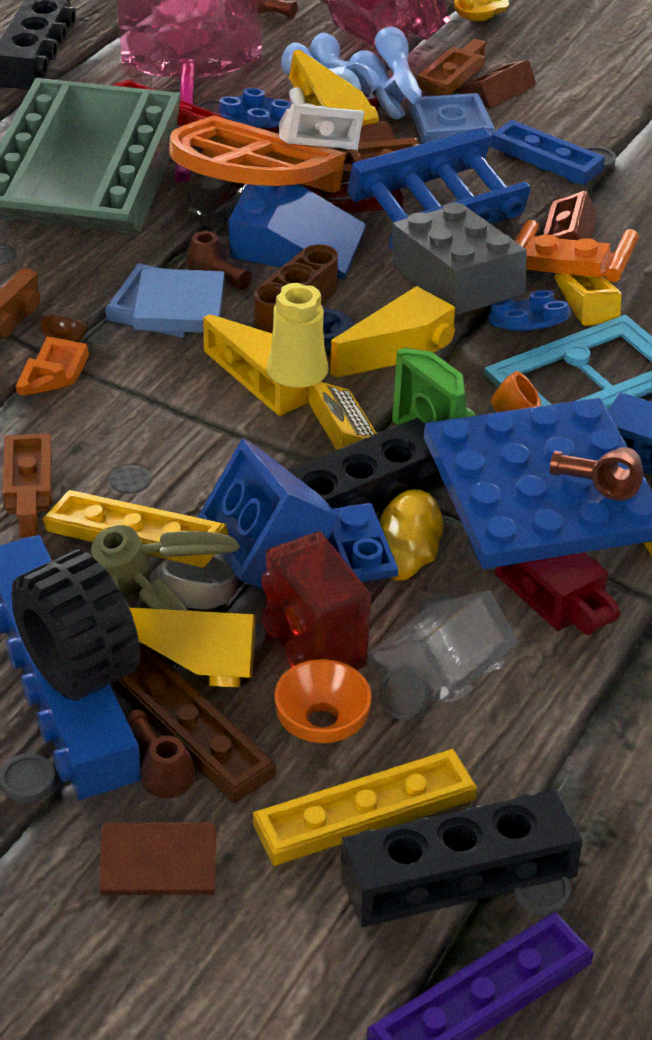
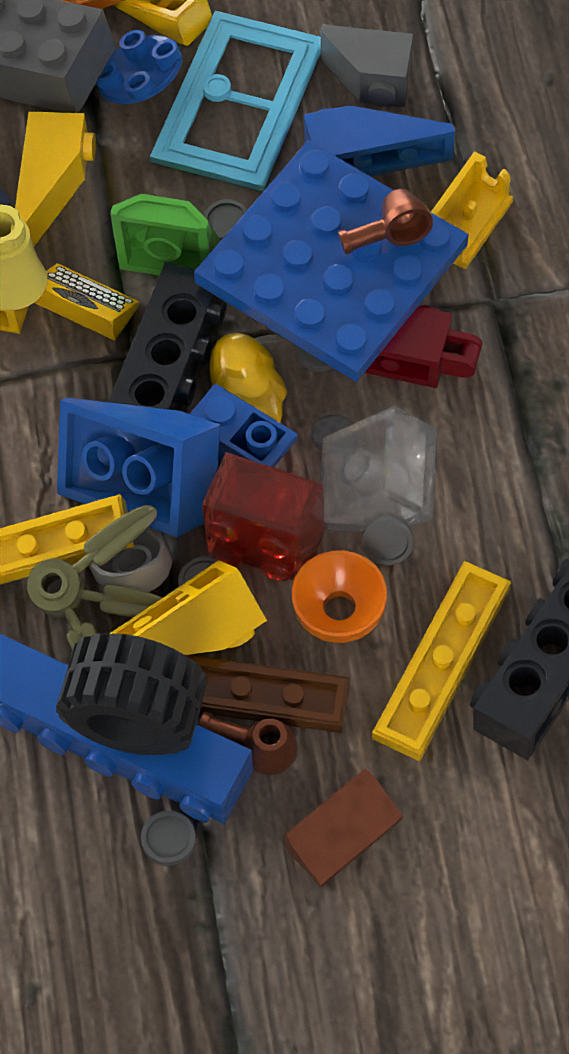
camera: 35 degrees left, 20 degrees up
(515, 393) = (216, 175): orange bar -> none

